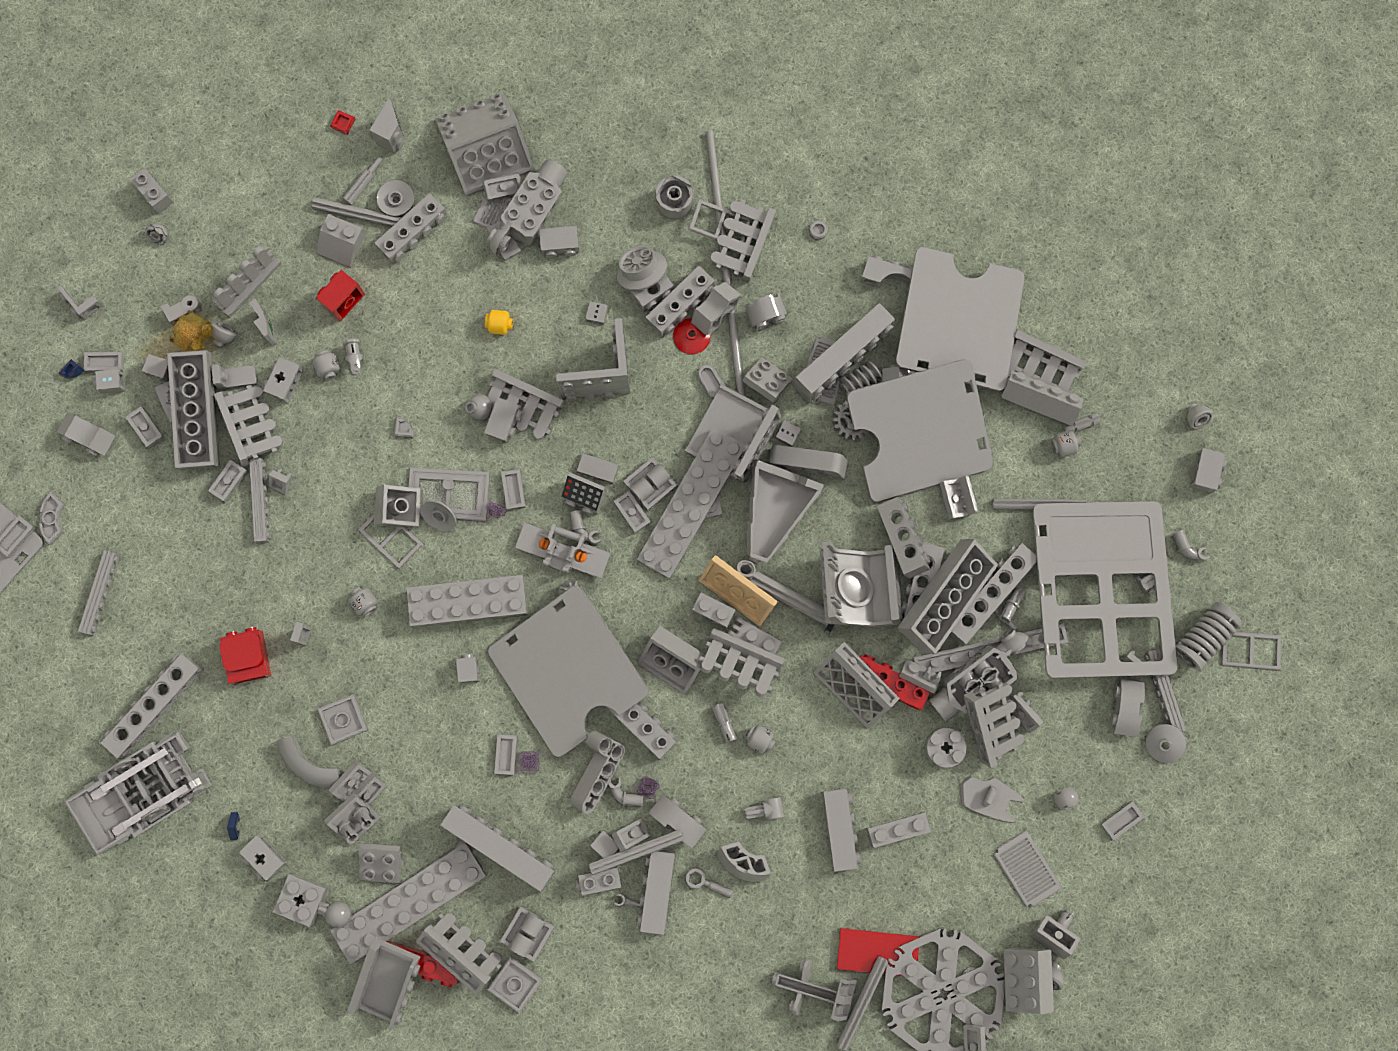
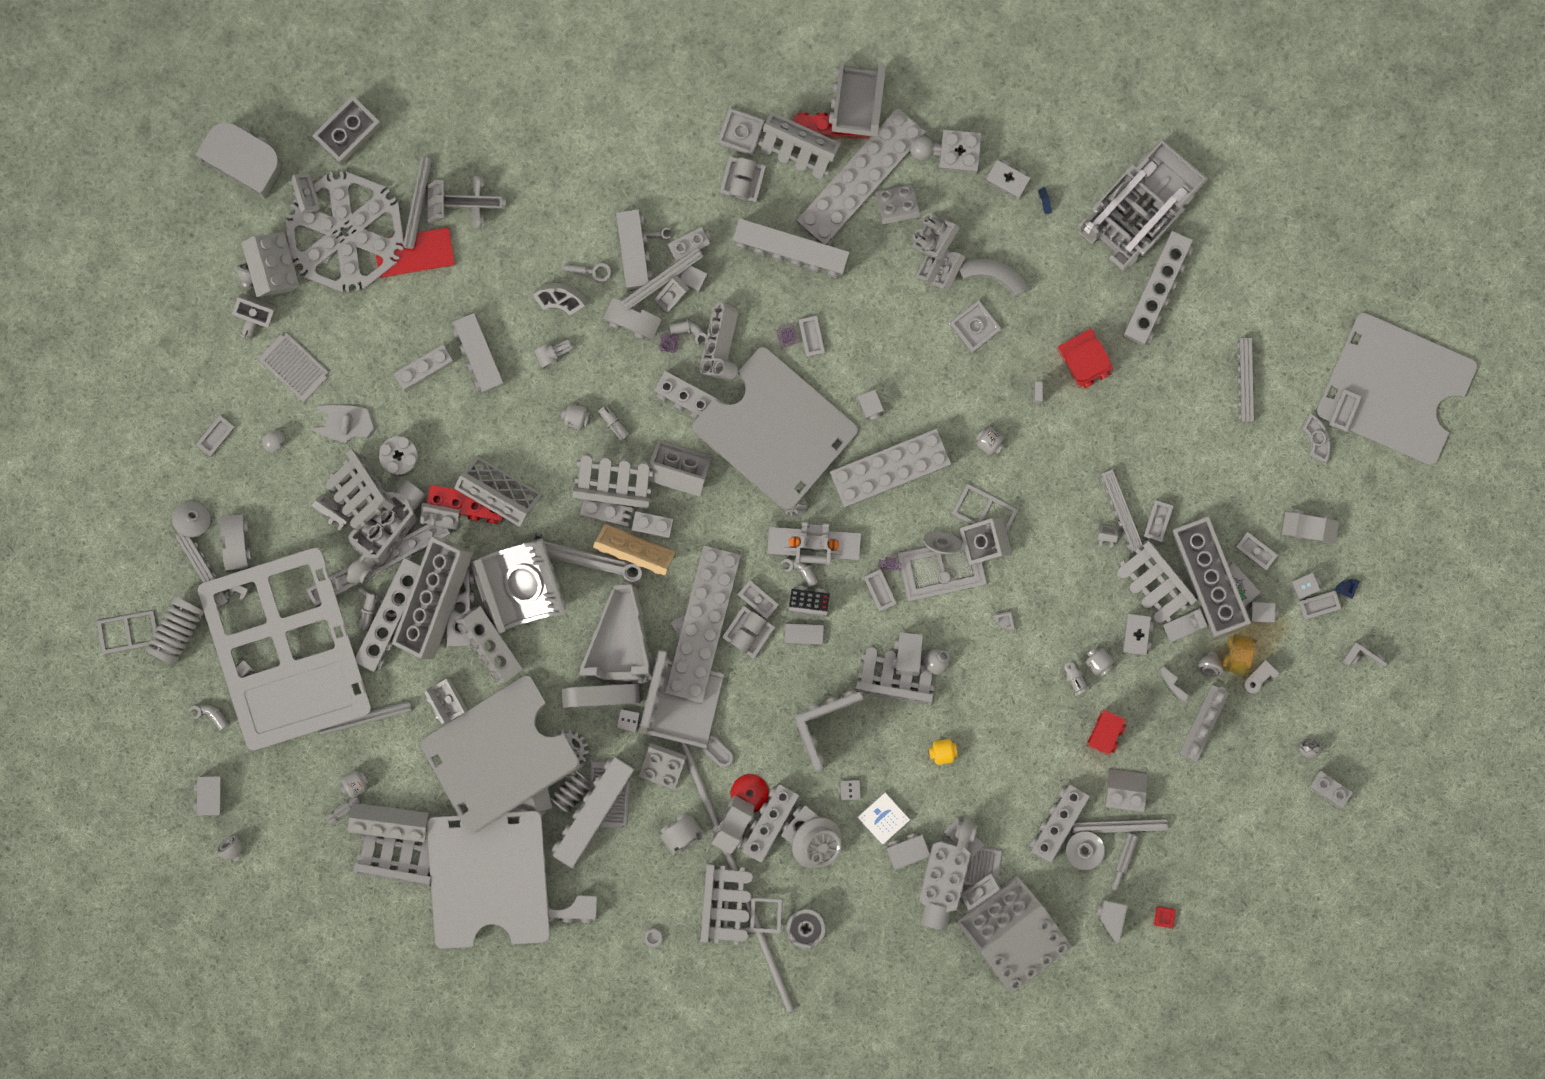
camera: 170 degrees right, 5 degrees up
(573, 278) = (883, 818): none -> white tile

